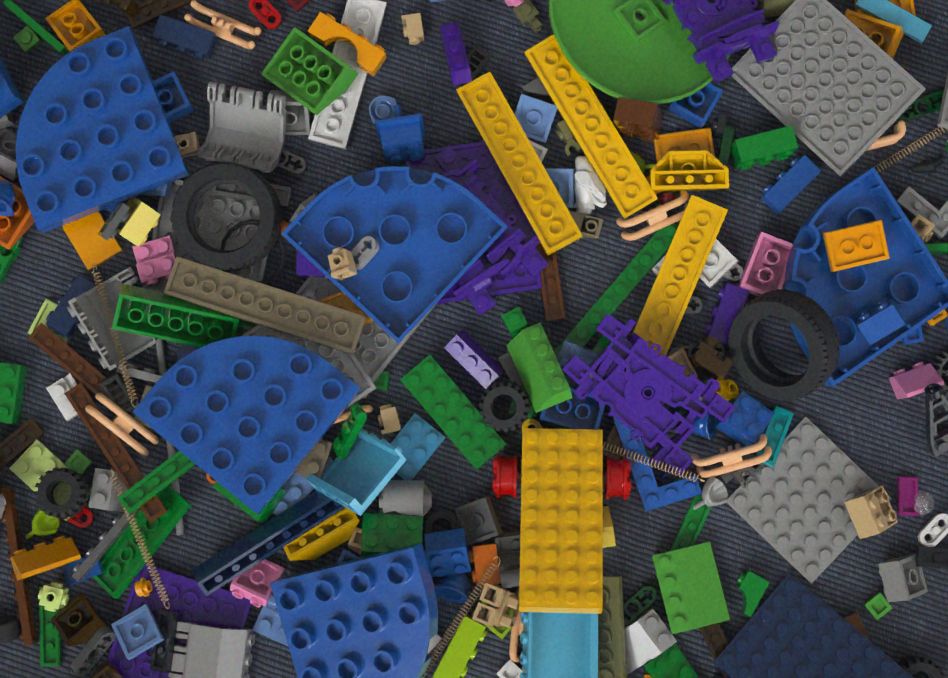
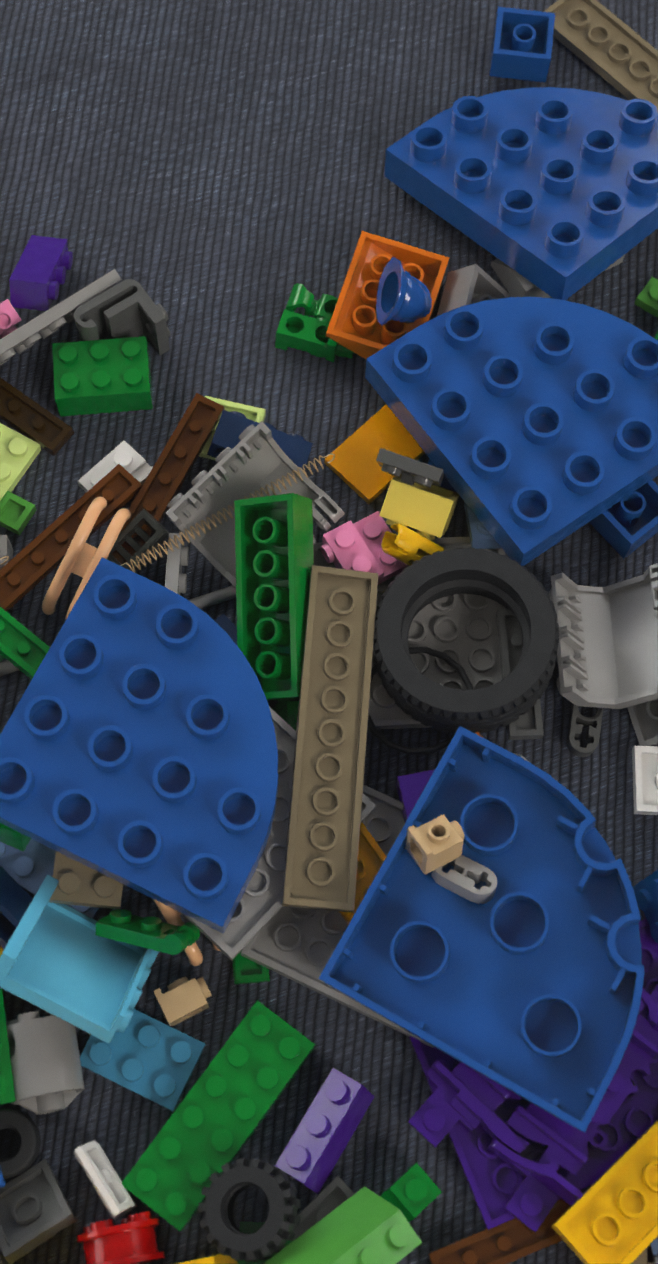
camera: 75 degrees right, 15 degrees down
(161, 233) = (408, 544): none -> yellow arm
(192, 144) = (573, 564): tan brick -> none
(472, 477) = (104, 1179): none -> white slope

